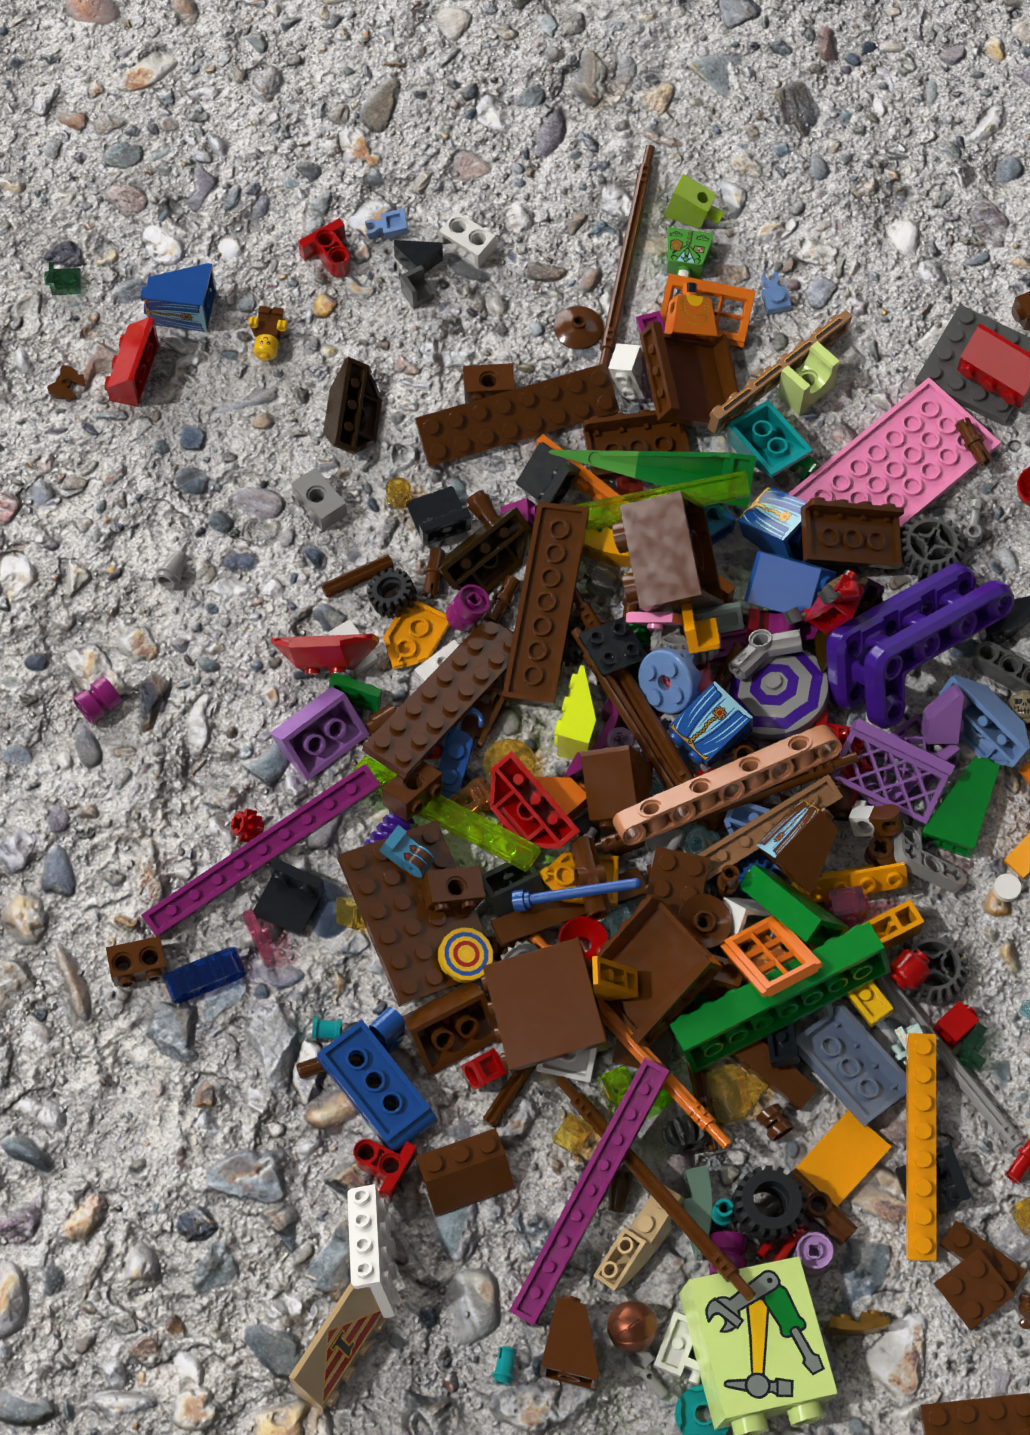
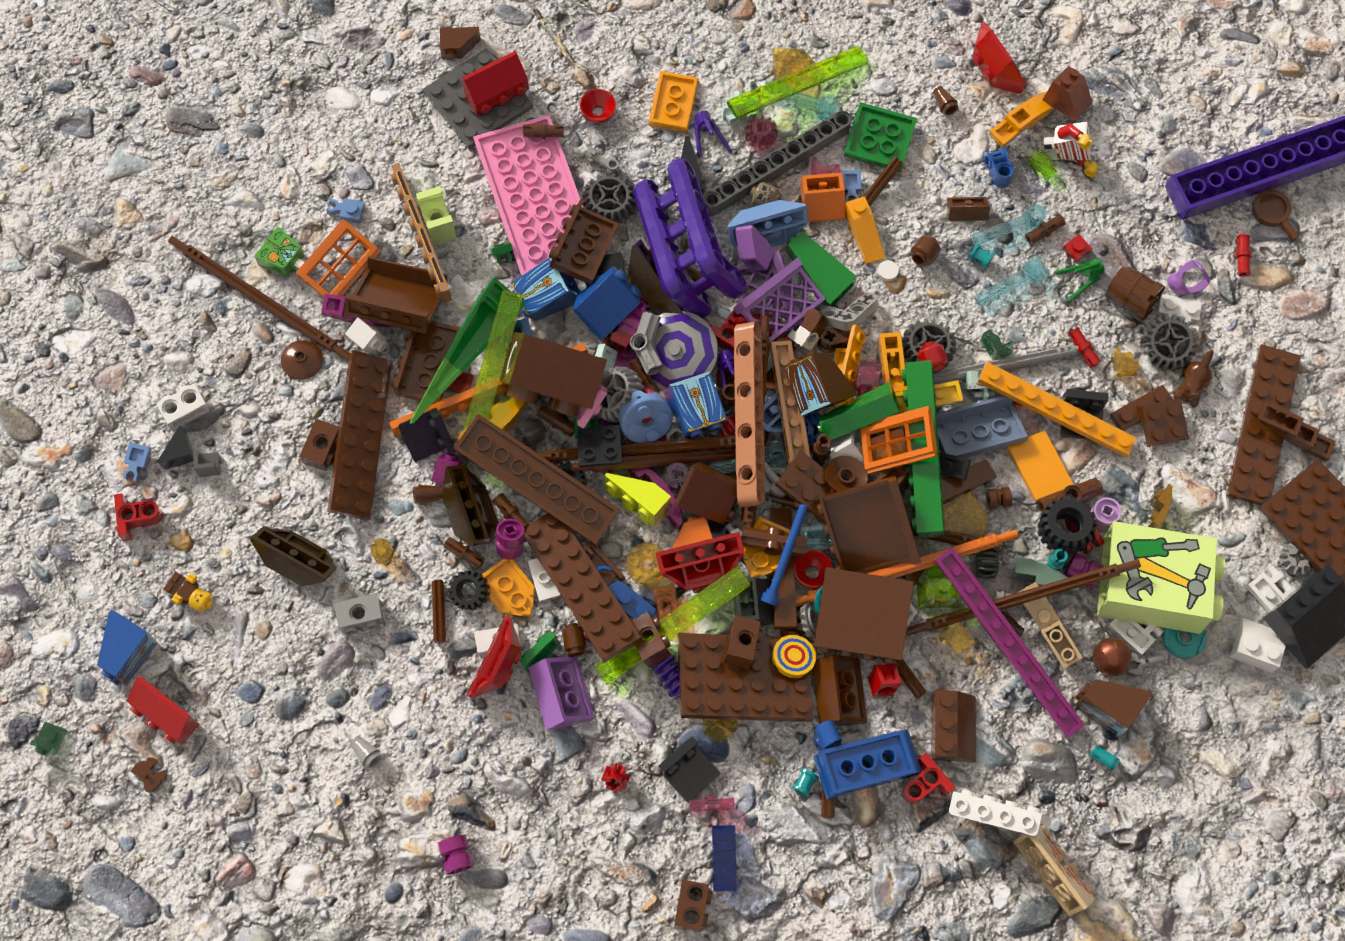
camera: 70 degrees left, 5 degrees up
(261, 850) = (642, 776): magenta plate -> none
(407, 853) = (702, 663): dark azure leg -> none
(439, 515) = (416, 529): black bracket -> none
(613, 980) = (868, 558): light orange slope -> none
(691, 315) = (342, 272): orange torso -> none
(693, 204) = (241, 230): lime torso -> none
(700, 634) = (624, 378): light orange panel -> none
(768, 437) = (474, 265): teal slope -> none
(833, 605) = (645, 276): red torso -> none
(956, 1024) = (975, 348): red brick -> none

